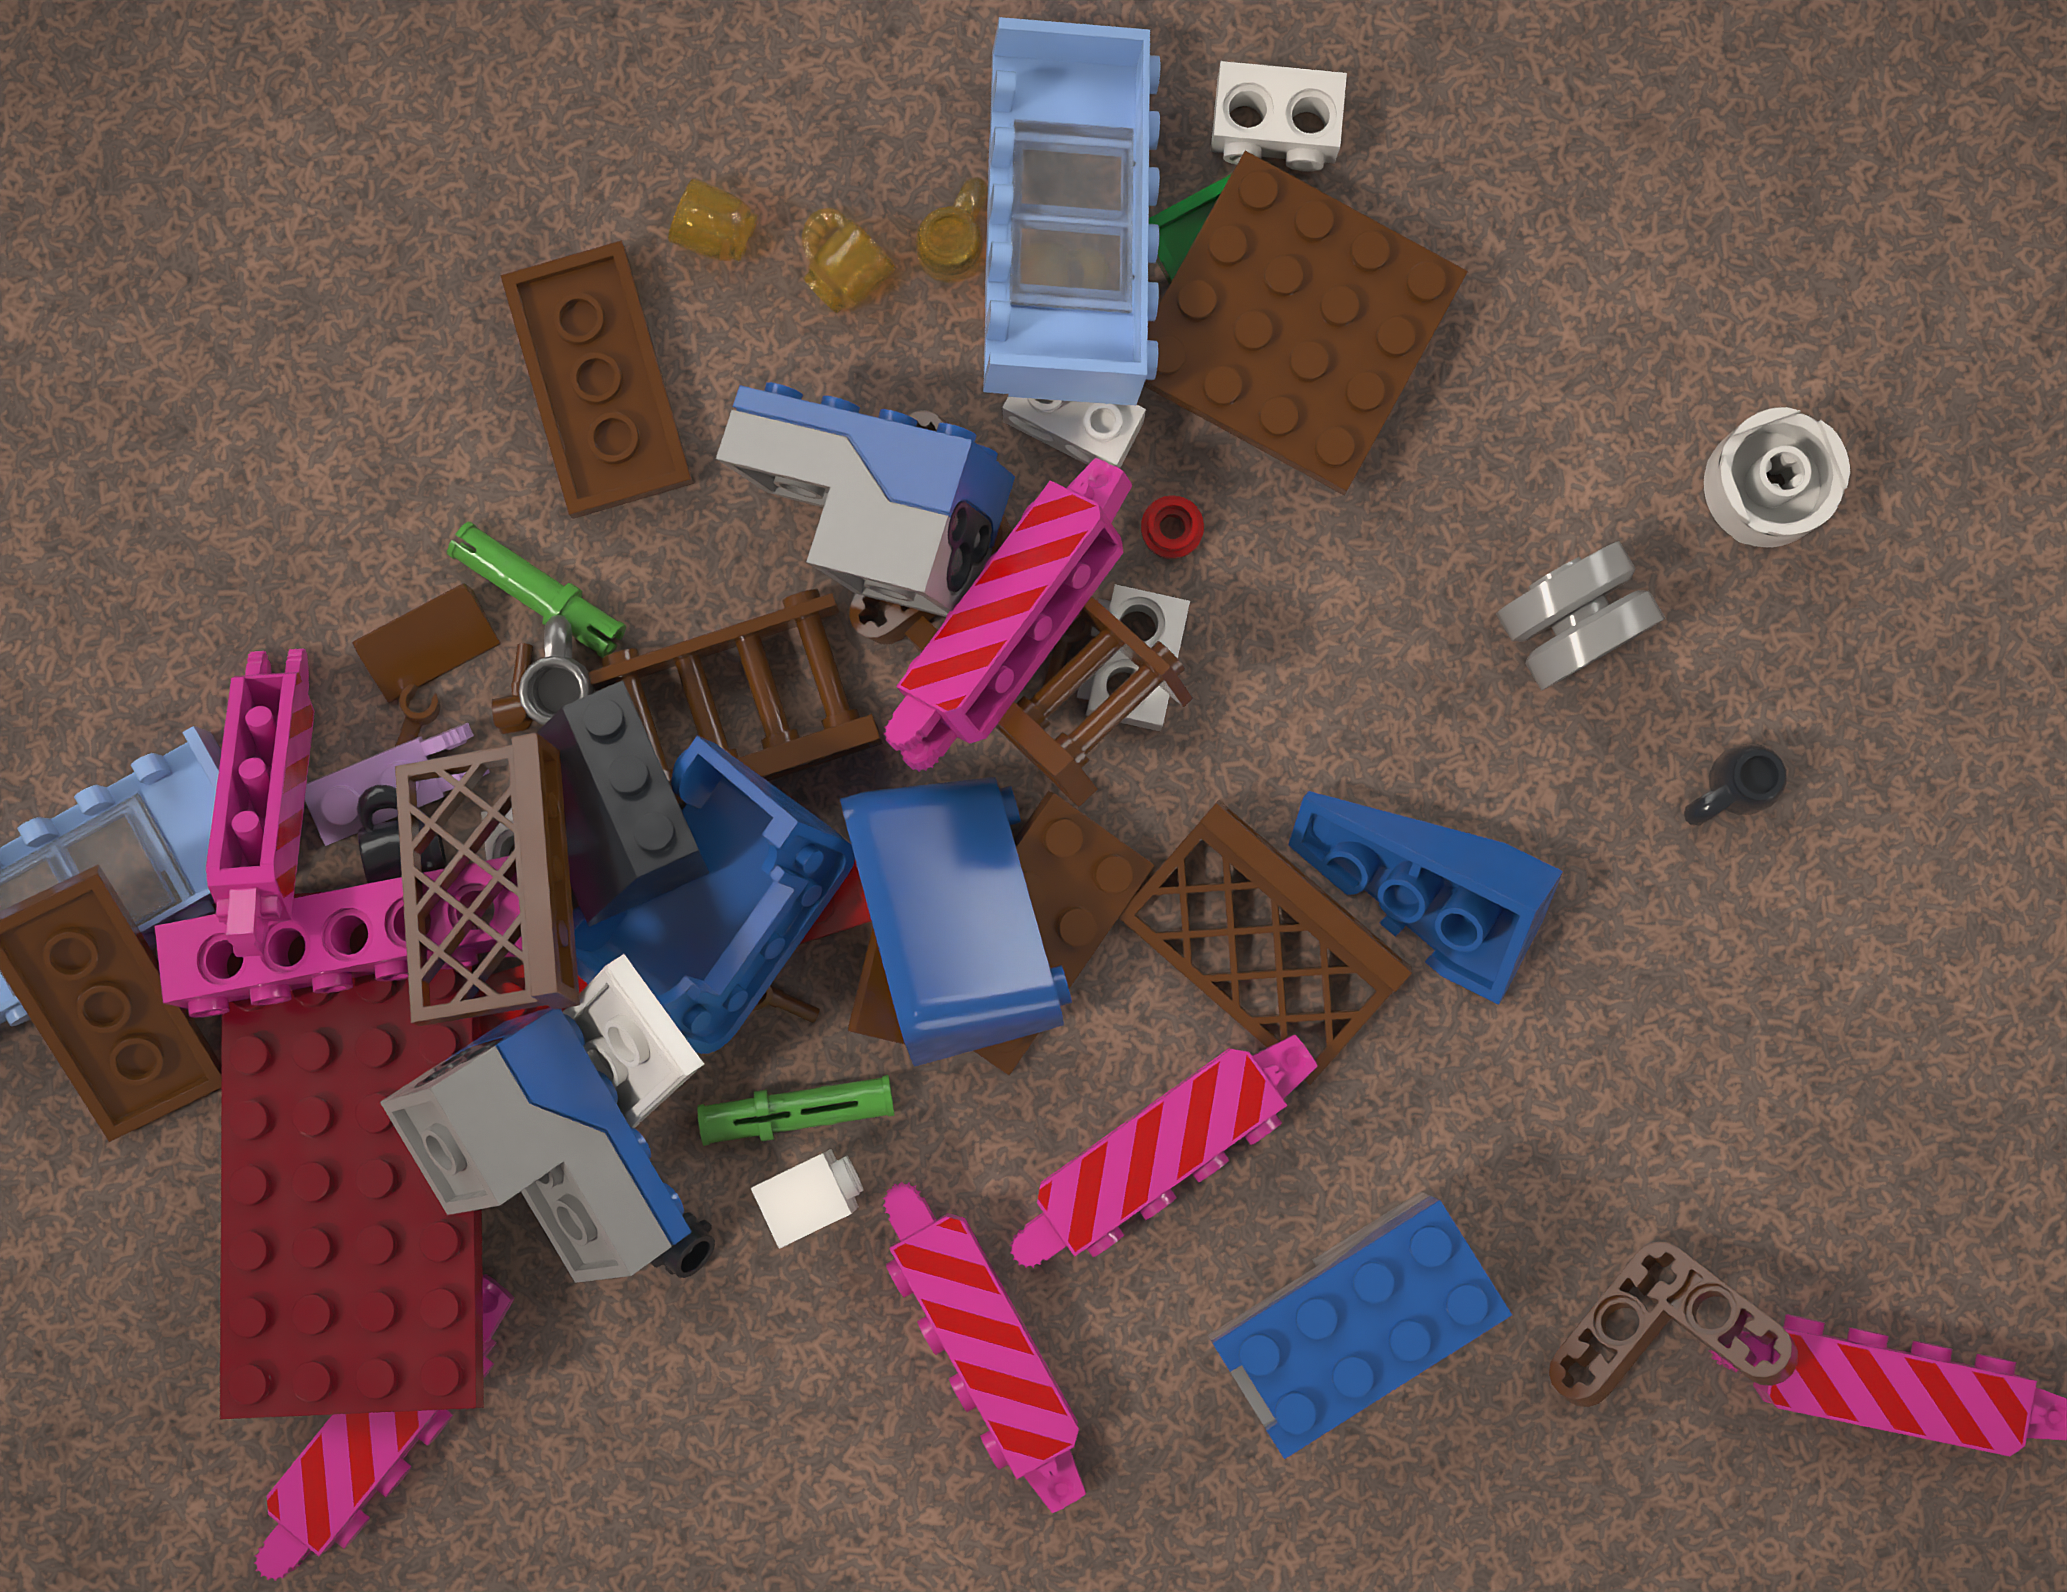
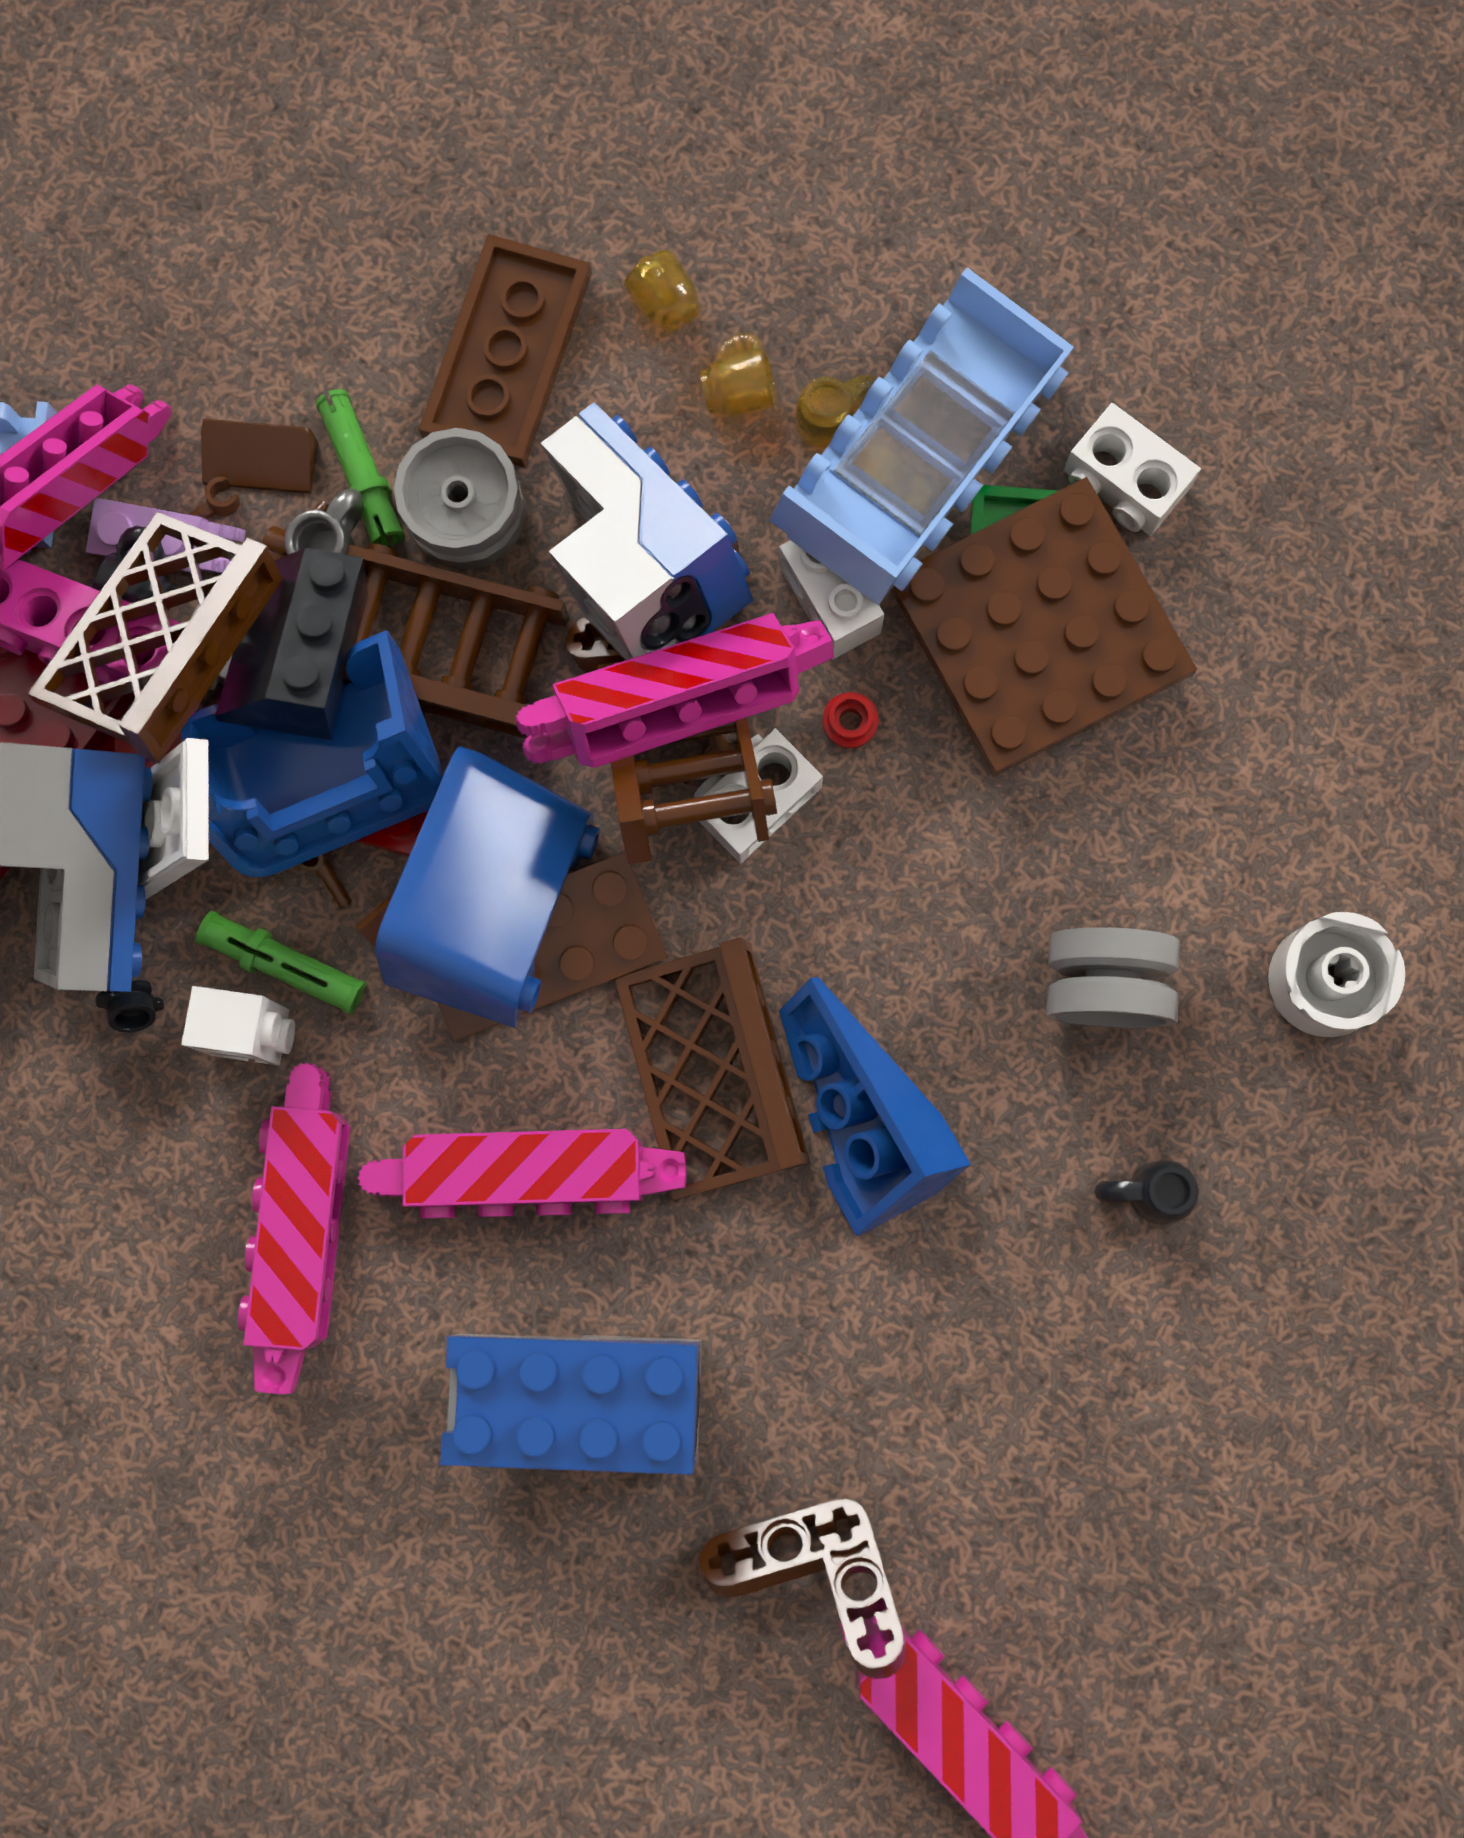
camera: 40 degrees right, 5 degrees down
(659, 518) = (453, 467): none -> light grey wheel

